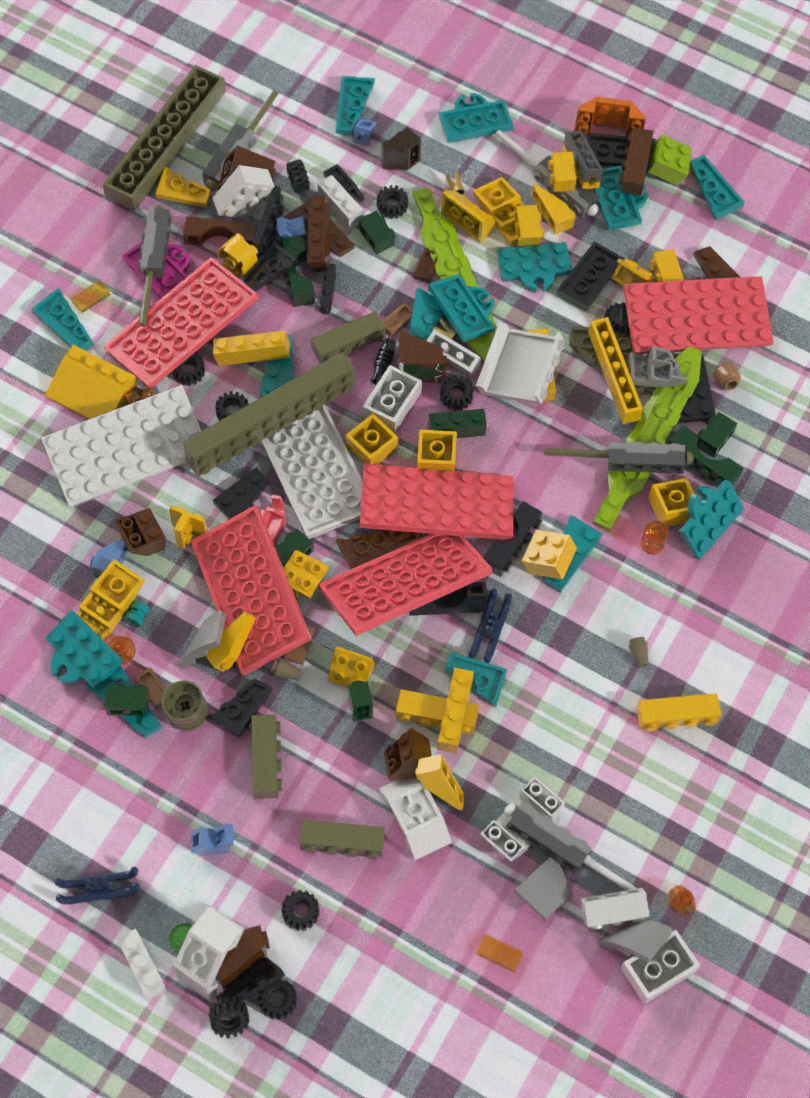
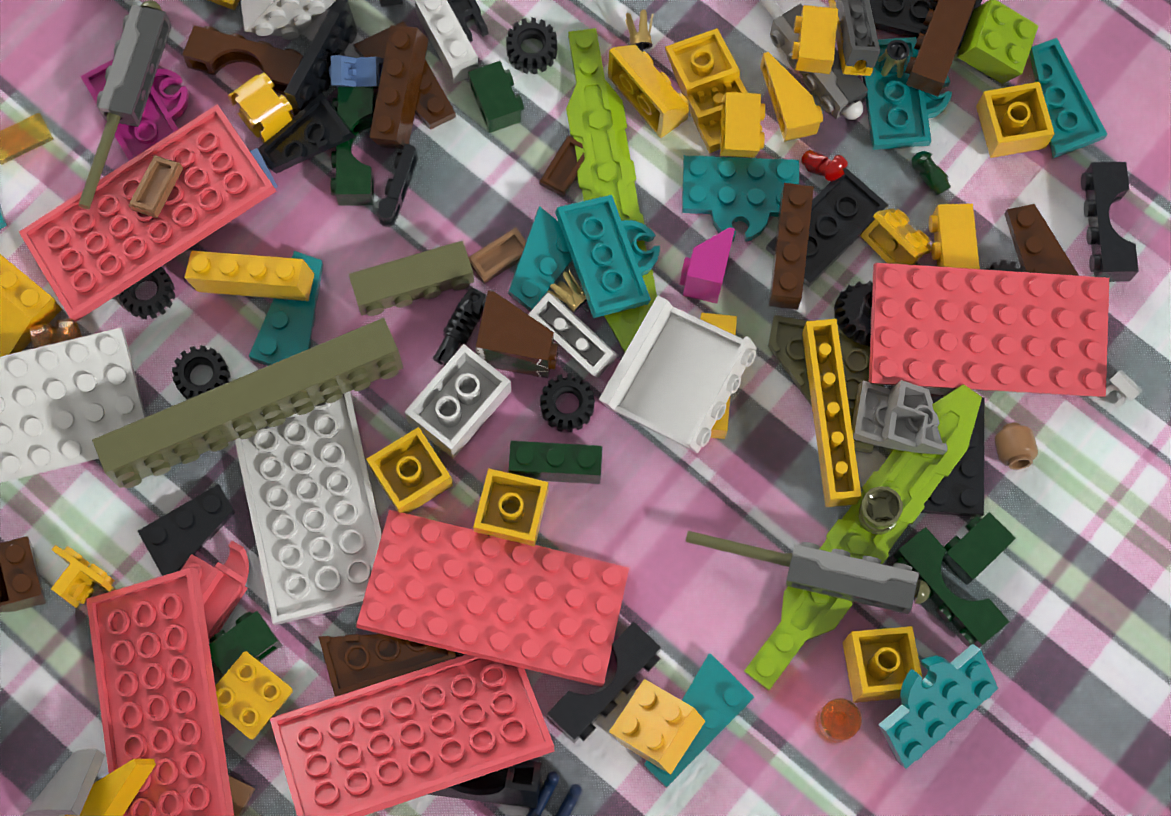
camera: 10 degrees right, 10 degrees up
(184, 306) = (155, 186): none -> medium nougat tile
(525, 305) = (706, 268): none -> dark pink slope
(572, 285) = (791, 246): none -> reddish brown brick
(581, 241) = (821, 165): none -> red arm
(612, 173) = (895, 54): none -> piece
(644, 237) = (931, 173): none -> dark green arm
(655, 417) = (880, 510): none -> olive wheel
(688, 201) = (1015, 119): none -> yellow brick
(750, 230) = (1111, 254): none -> black arch
(784, 336) = (1125, 386): none -> white tile

